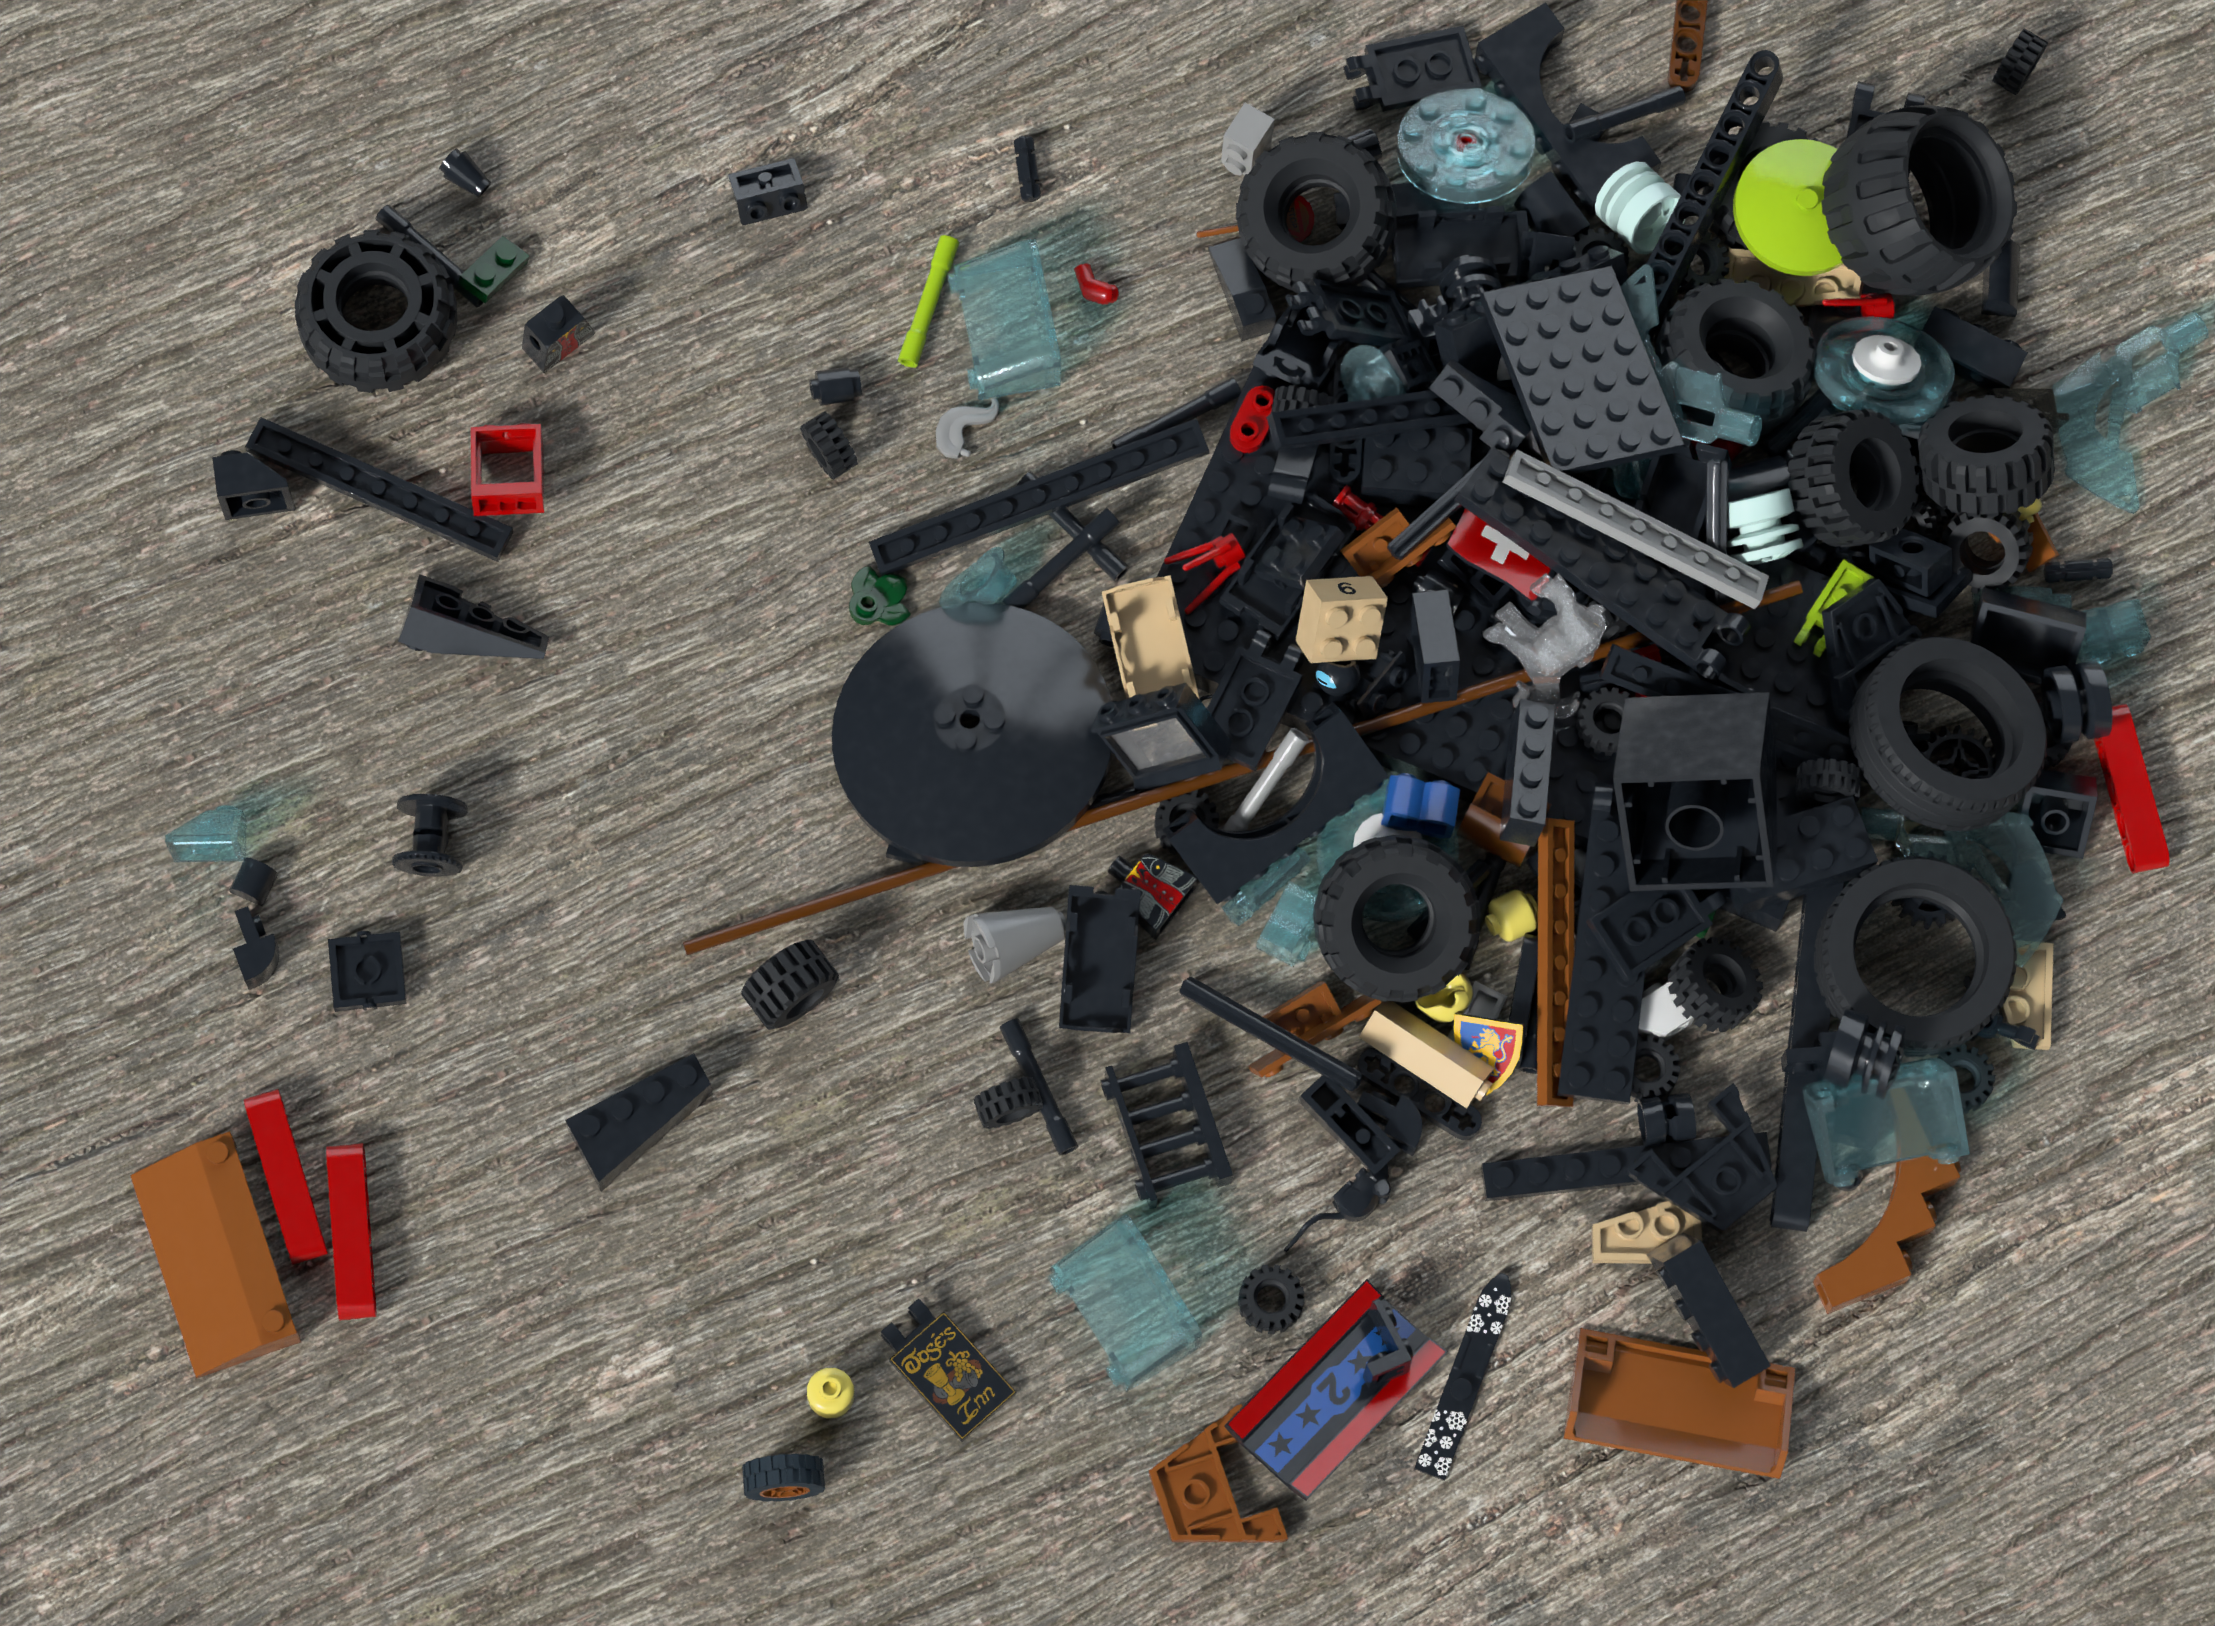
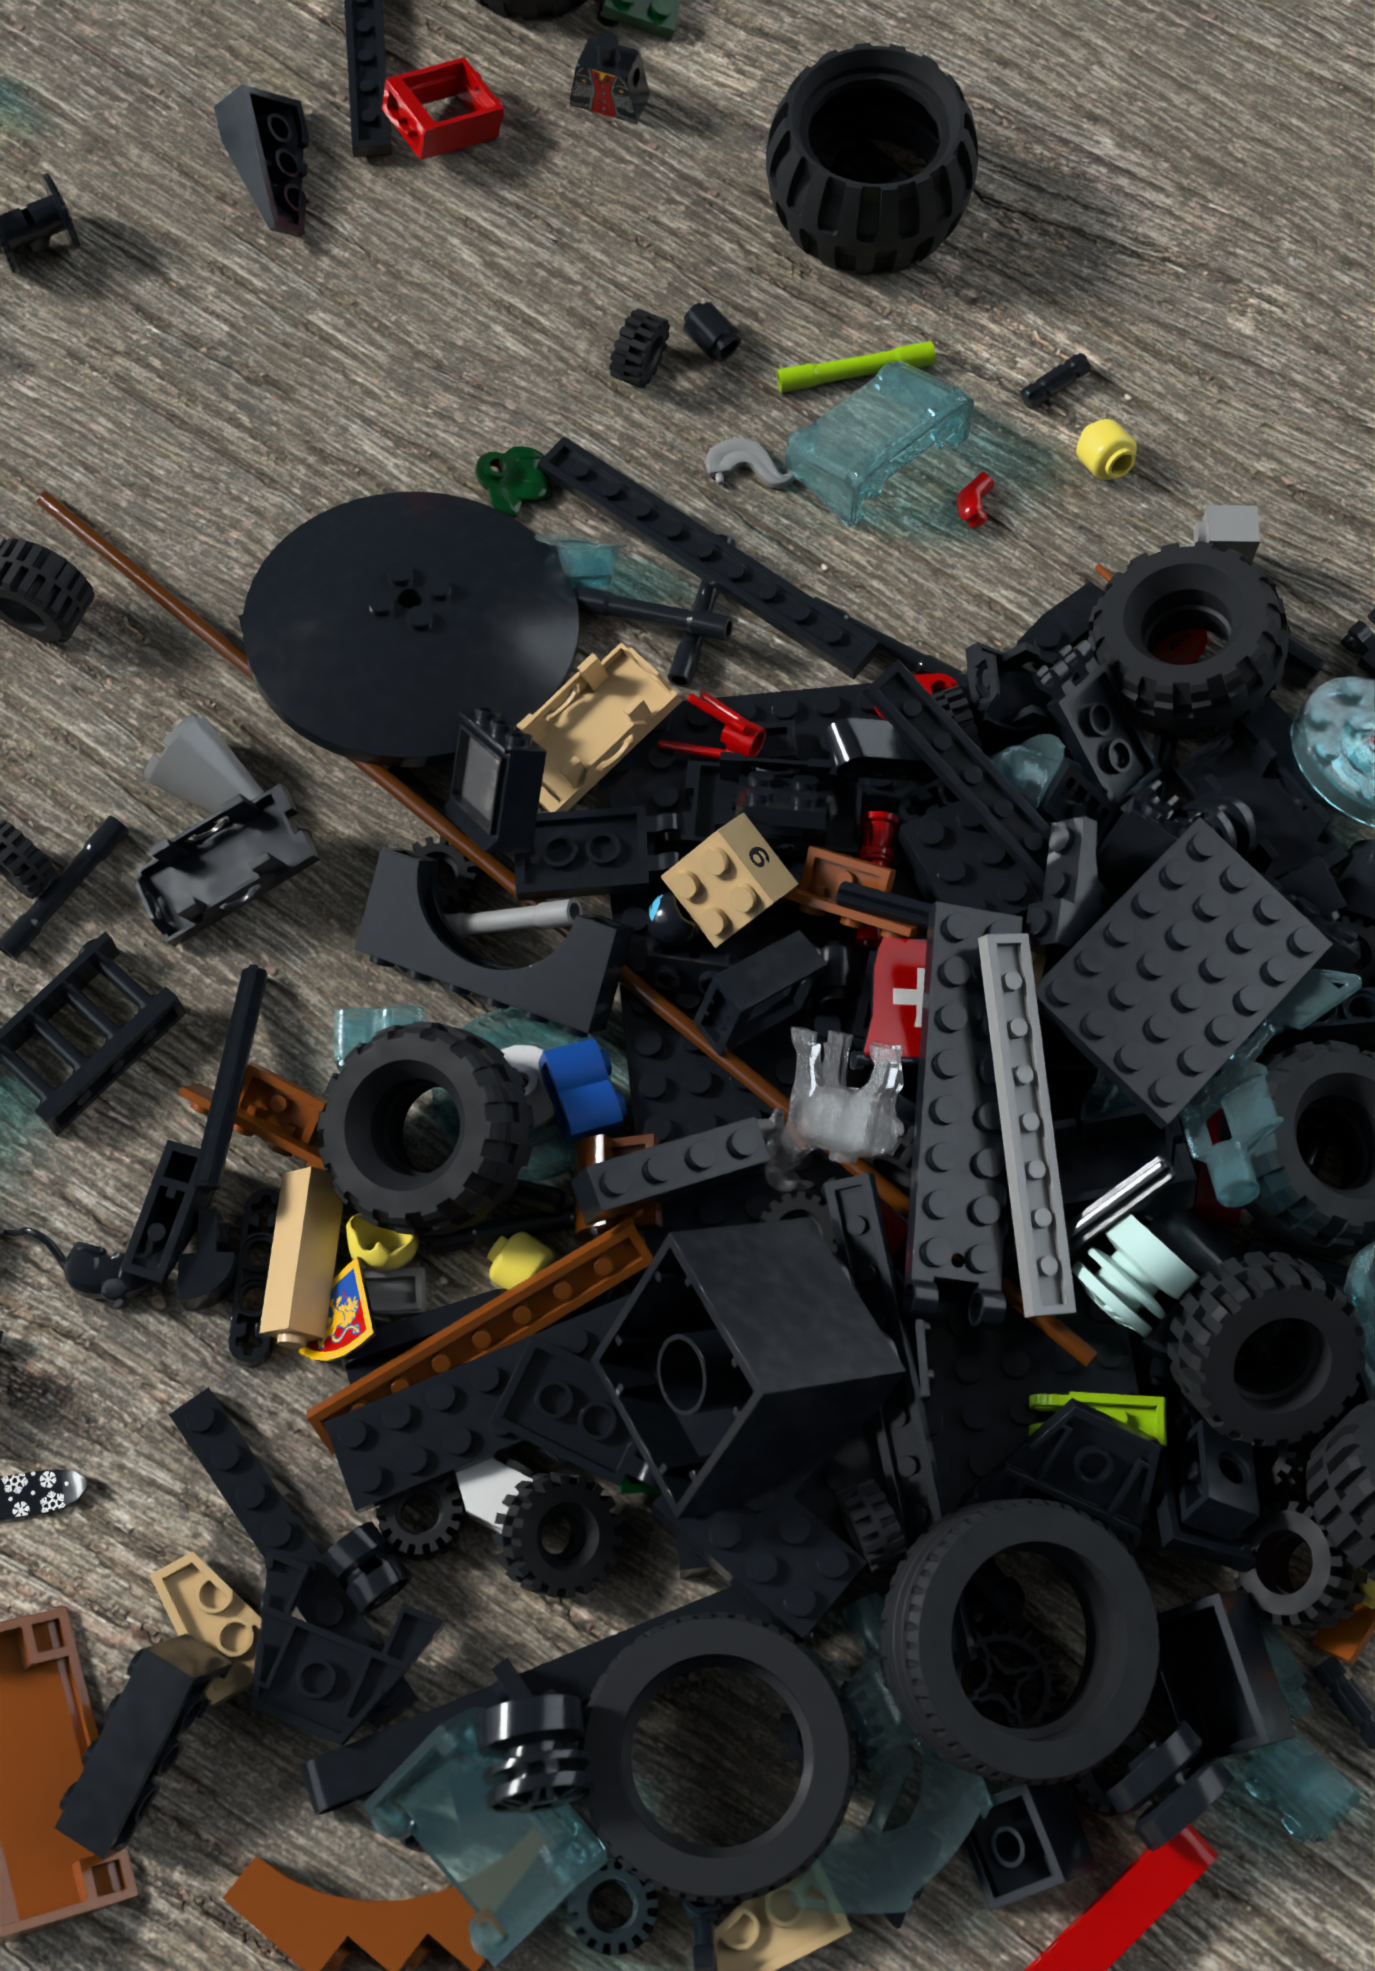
camera: 65 degrees right, 5 degrees down
(767, 121) = (883, 97): none -> black tyre
(1112, 170) = (1106, 449): none -> light yellow head
(1161, 886) = (338, 884): torso -> none
(1259, 891) = (395, 984): clear light blue hinge -> none

